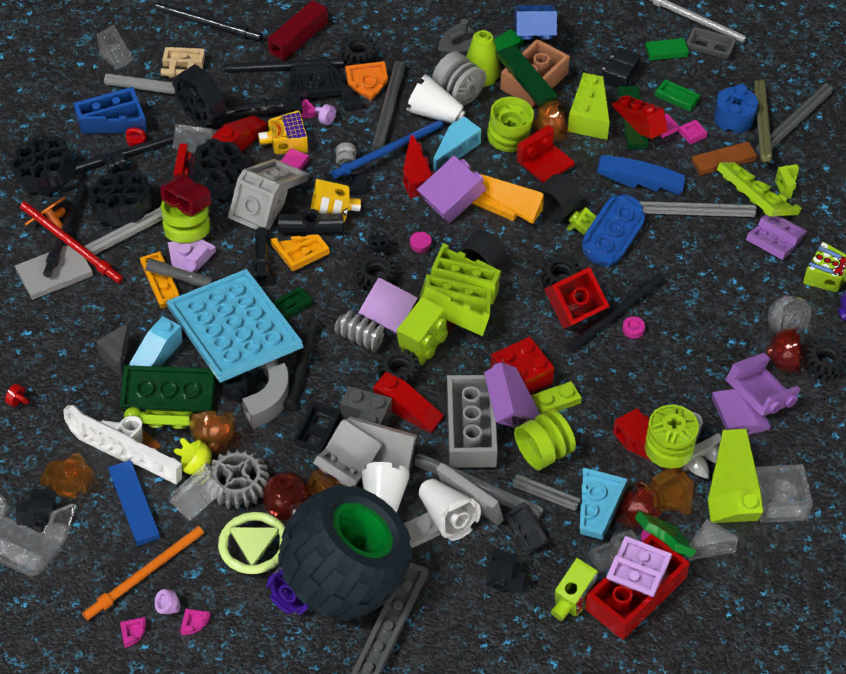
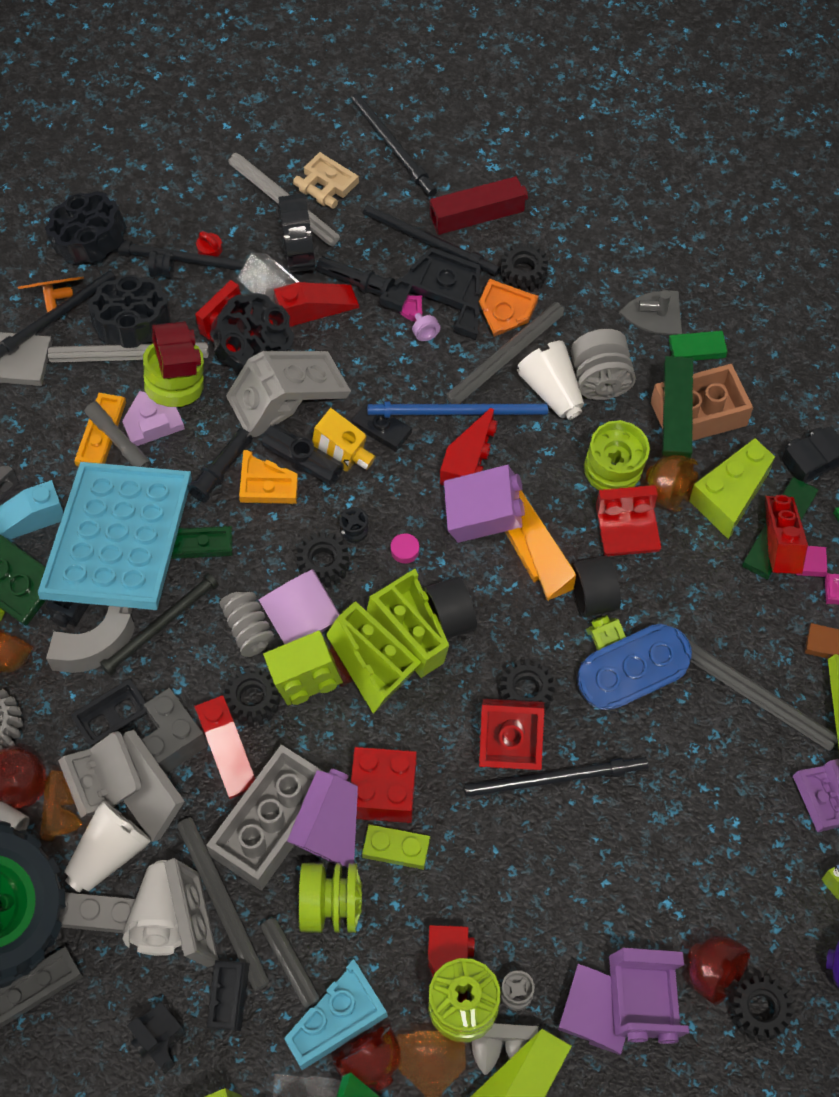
camera: 35 degrees right, 10 degrees up
(102, 265) = (53, 381): red bar -> none
(110, 113) = (200, 202): blue wedge -> none
(113, 47) = (266, 125): clear slope -> none
(285, 133) = (363, 328): torso -> none
(295, 158) = (350, 365): dark pink tile -> none
(345, 153) = (406, 390): light grey wheel -> none
(459, 140) = (542, 444): medium azure slope -> none
(484, 54) = (649, 353): lime cone -> none
(535, 21) = (747, 338): brick -> none
(633, 327) = (561, 809): dark pink tile -> none
(635, 172) = (727, 610): blue slope -> none
(789, 312) = (756, 919): clear cylinder -> none

